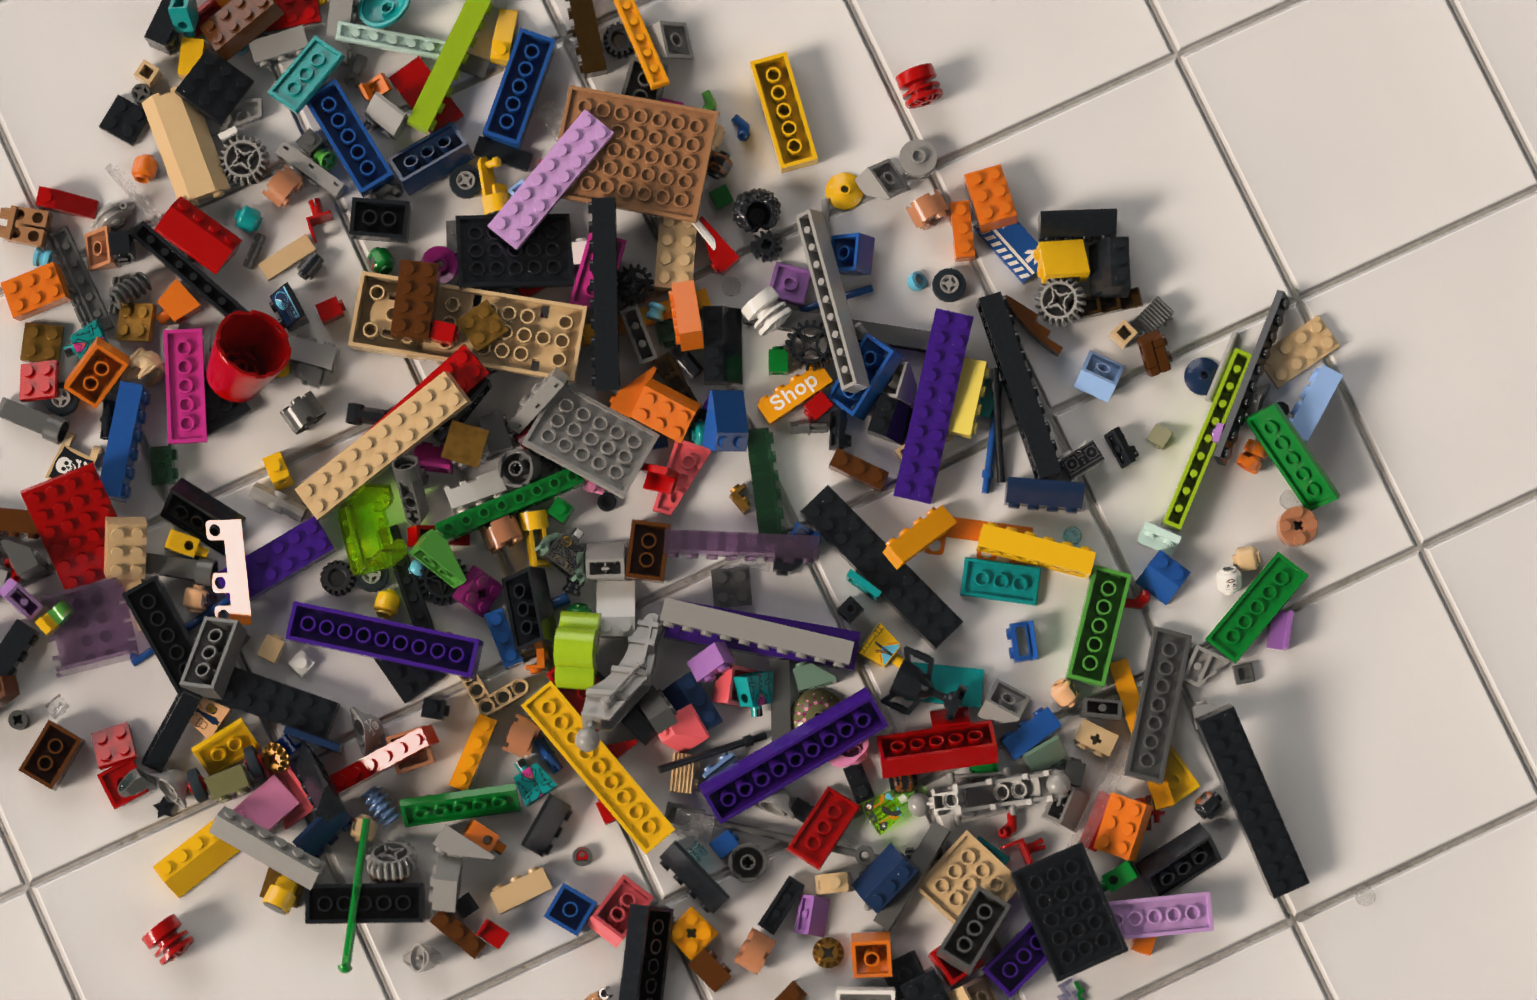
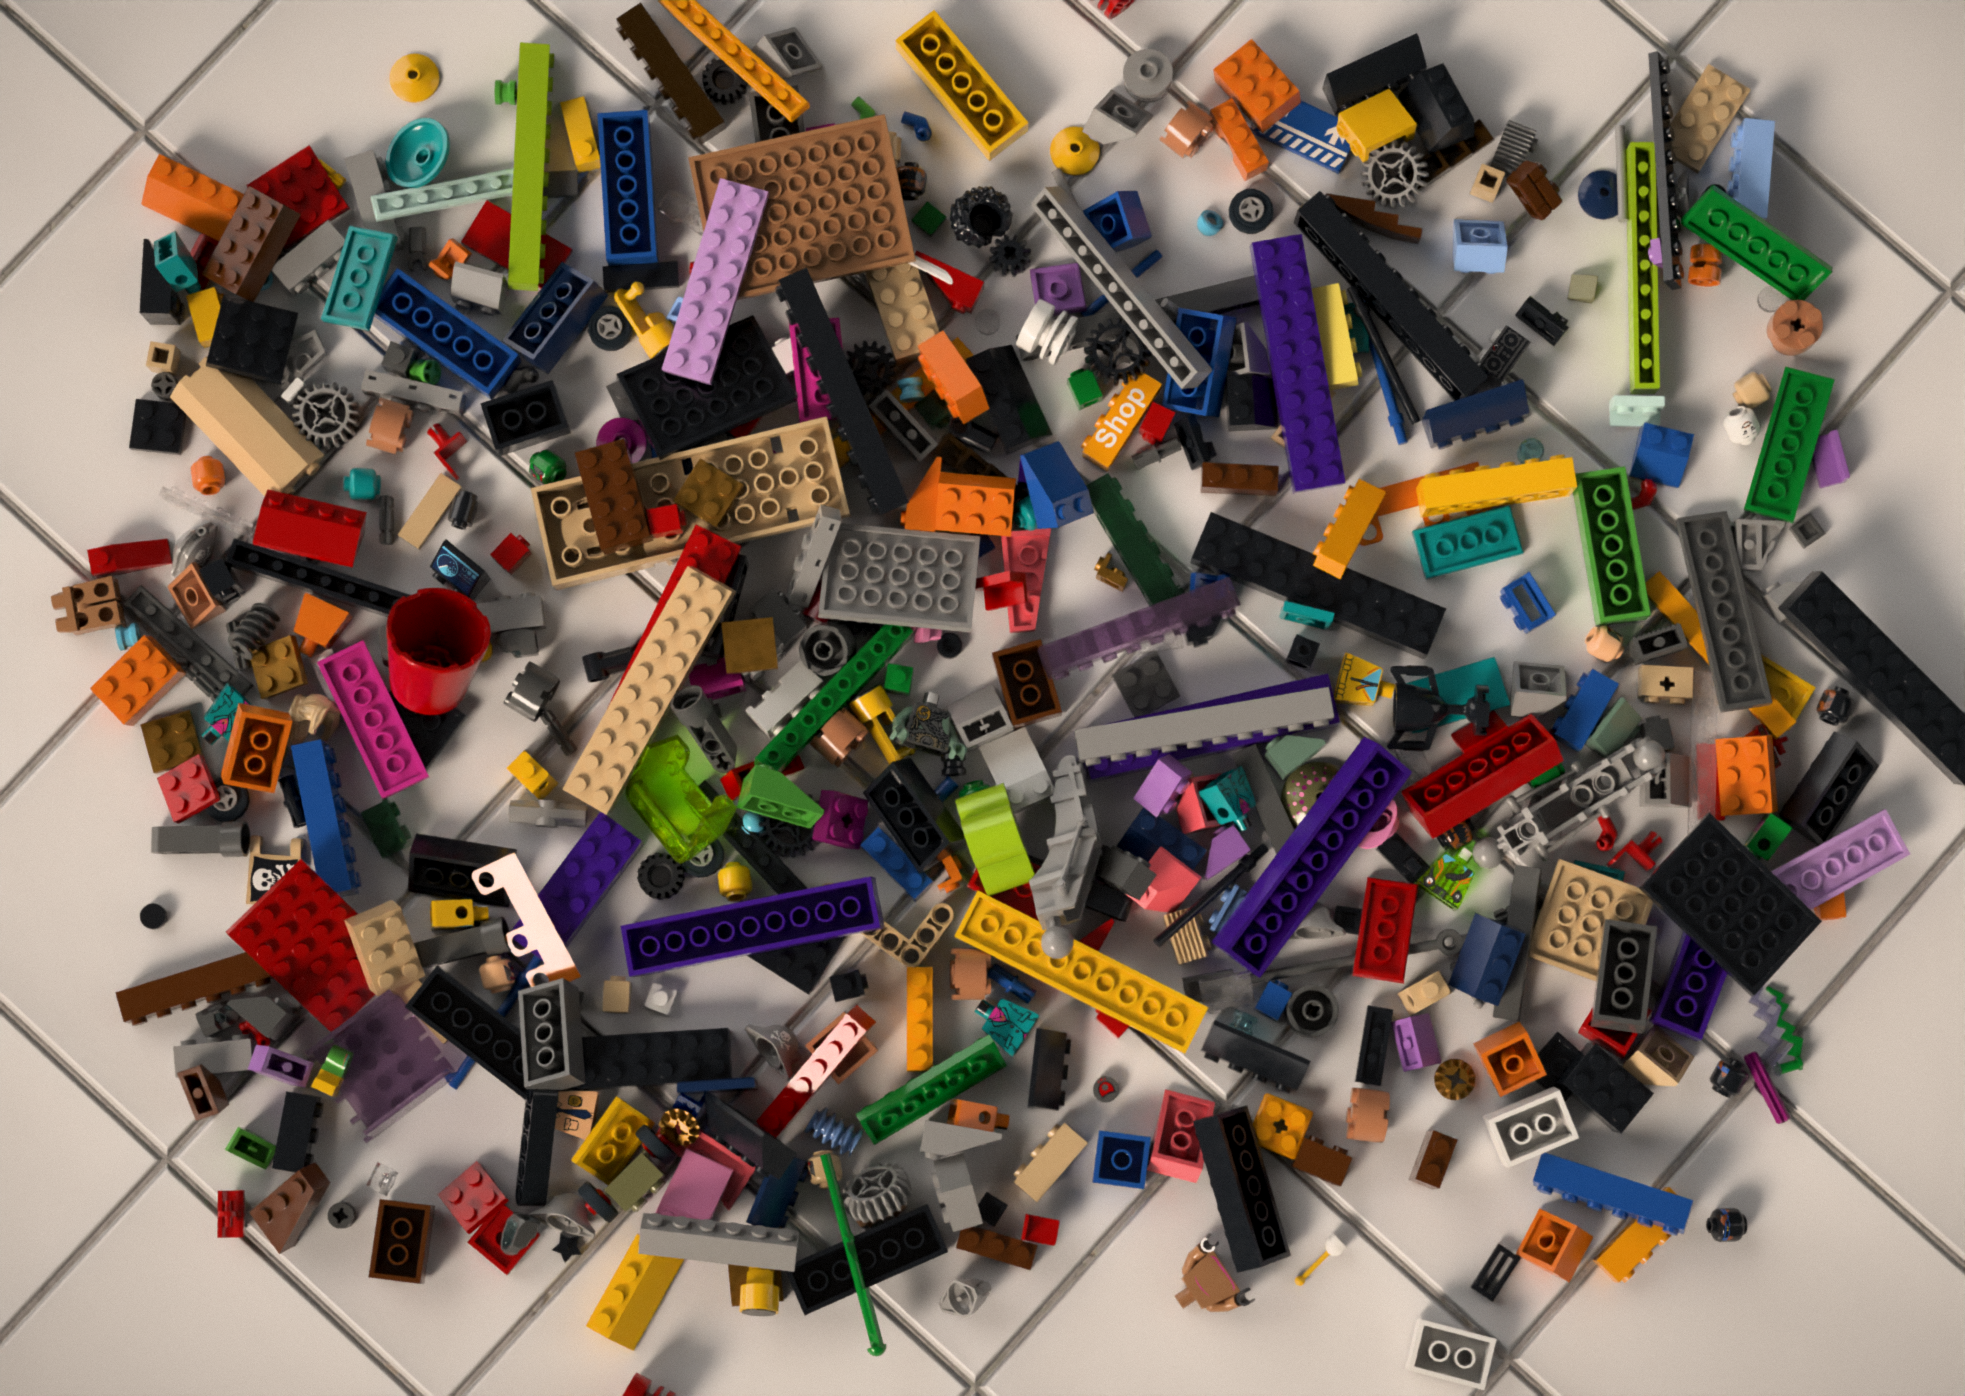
camera: 20 degrees left, 0 degrees up
(310, 449) = (558, 732): none -> dark grey axle
(736, 725) = (1224, 850): none -> medium lavender slope

